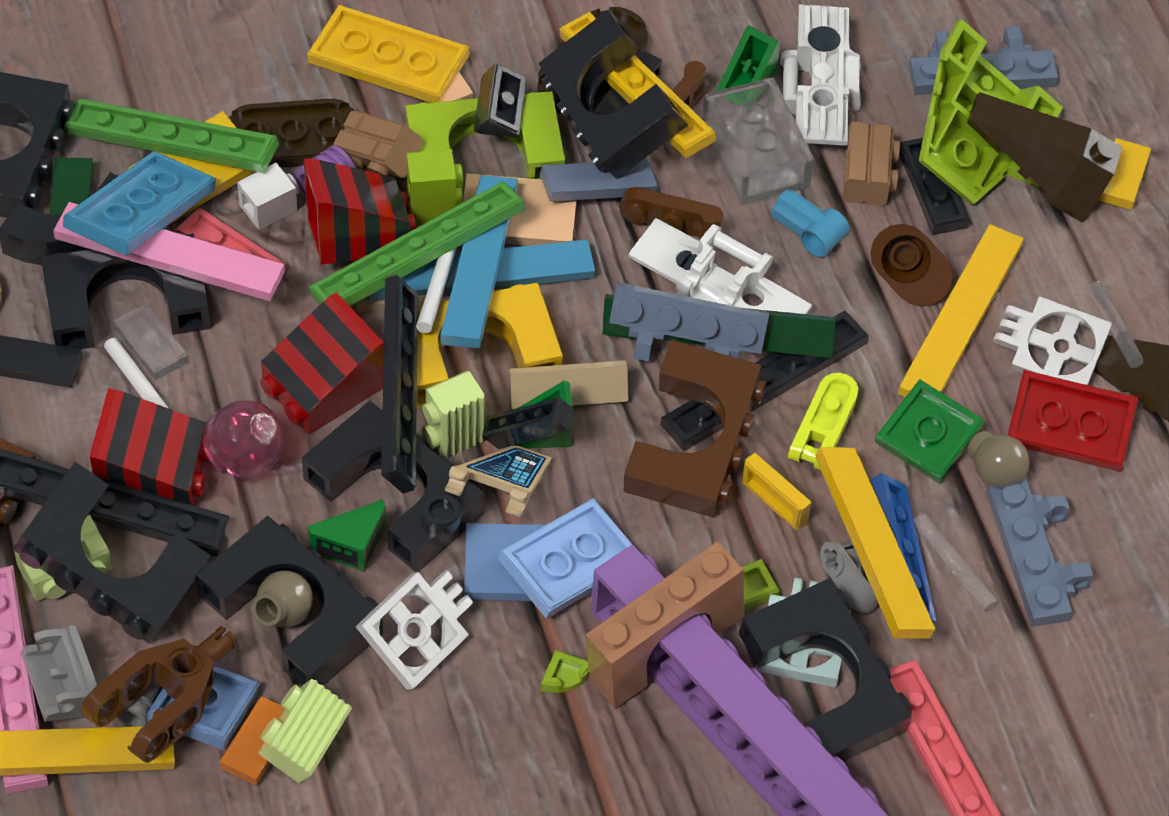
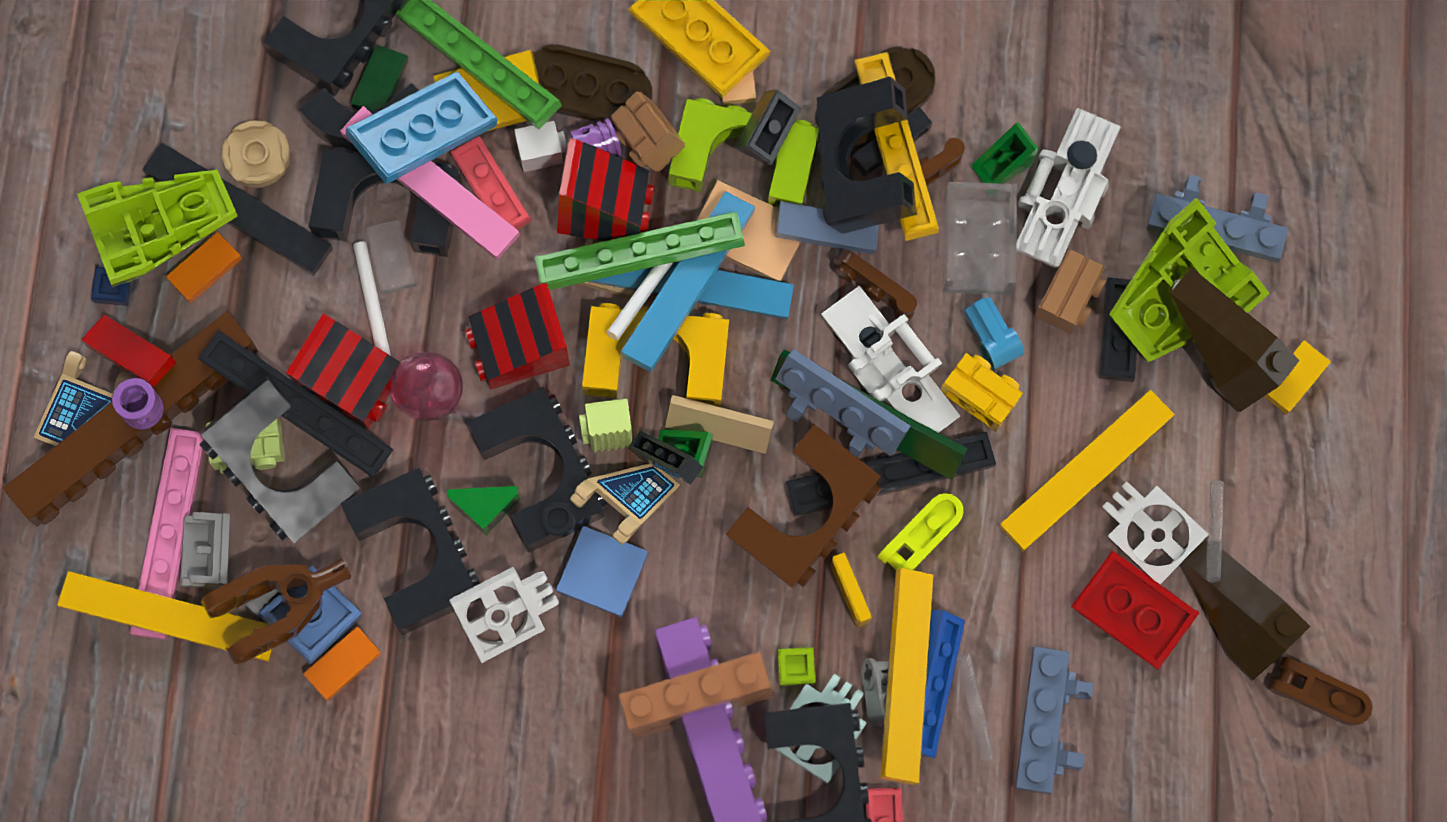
camera: 20 degrees right, 20 degrees up
(283, 600) = (403, 549): dark tan piece -> none
(303, 730) = (376, 674): yellowish green brick -> none
(399, 385) = (569, 385): black tile -> none
(432, 184) = (677, 193): lime brick -> none
(560, 558) = (654, 590): light blue tile -> none
(564, 673) = (607, 691): lime tile -> none
(823, 274) = (982, 391): none -> yellow brick
(911, 264) = (1061, 410): reddish brown piece -> none
(929, 431) = (1007, 577): green tile -> none
(999, 459) = (1052, 629): dark tan piece -> none

